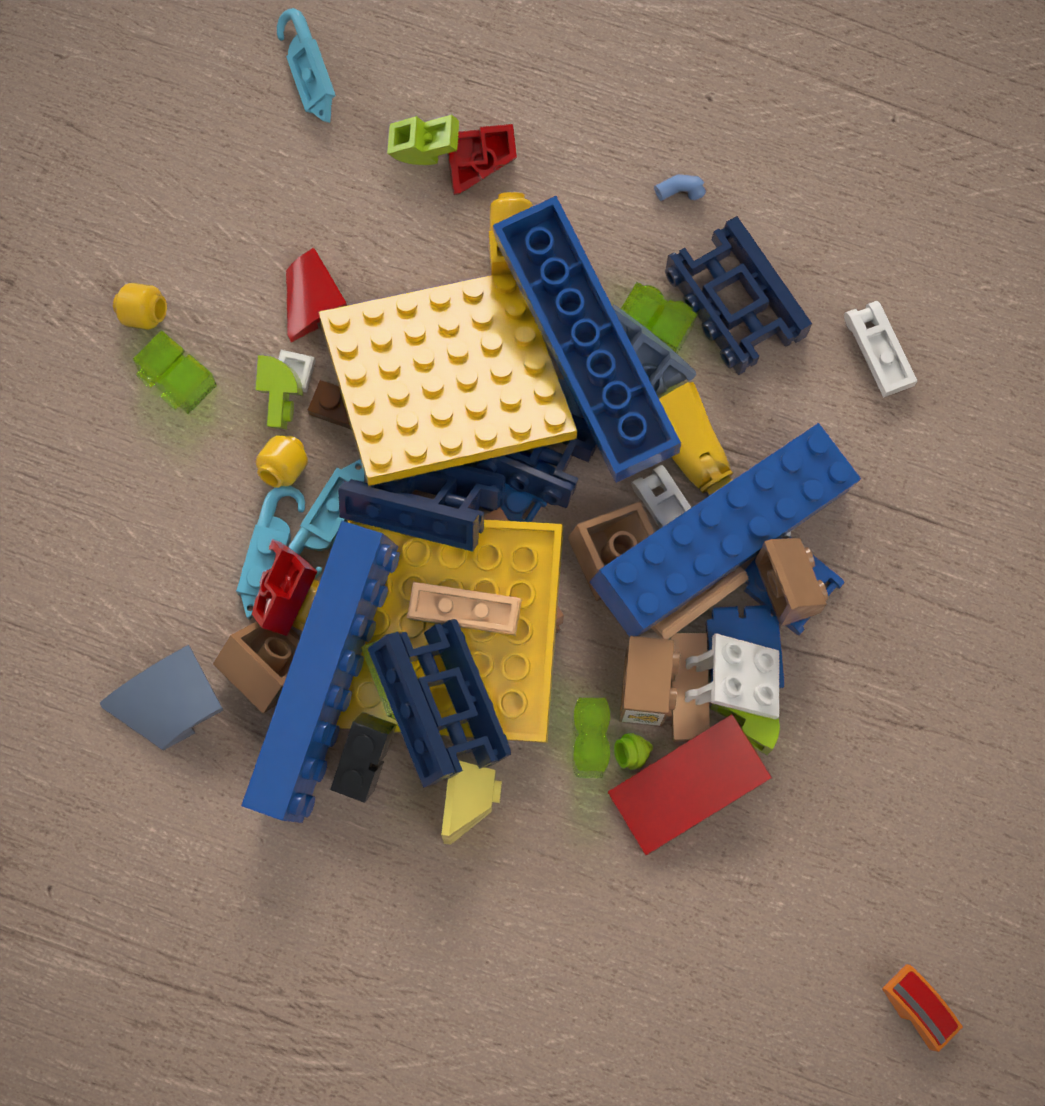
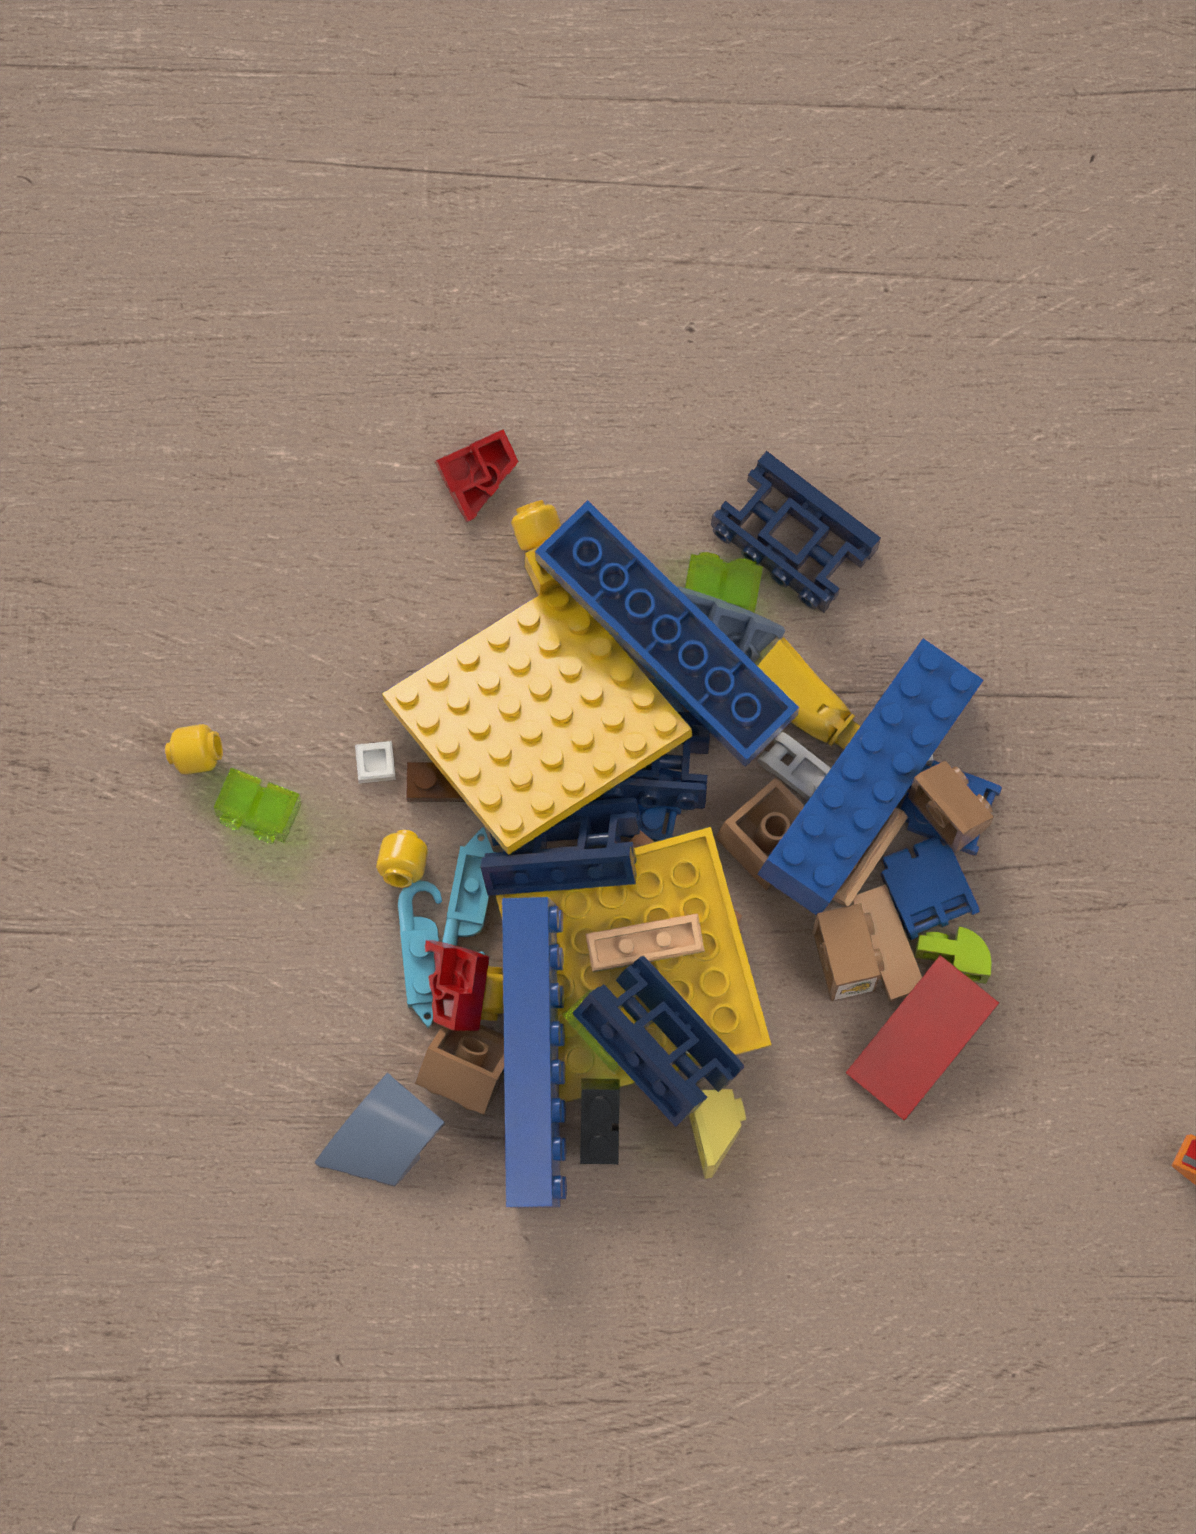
camera: 20 degrees left, 0 degrees up
(279, 382) = (371, 777): lime brick -> none
(307, 66) = (265, 437): medium azure plate -> none
(308, 293) = (362, 677): red slope -> none
(421, 141) = (418, 477): lime brick -> none
(591, 746) = (816, 1035): clear neon green brick -> none
(632, 751) = (855, 1025): lime plate -> none
(680, 183) = (696, 431): medium blue arm -> none
(742, 676) = (938, 916): white plate -> none
(881, 349) = (956, 538): white plate -> none

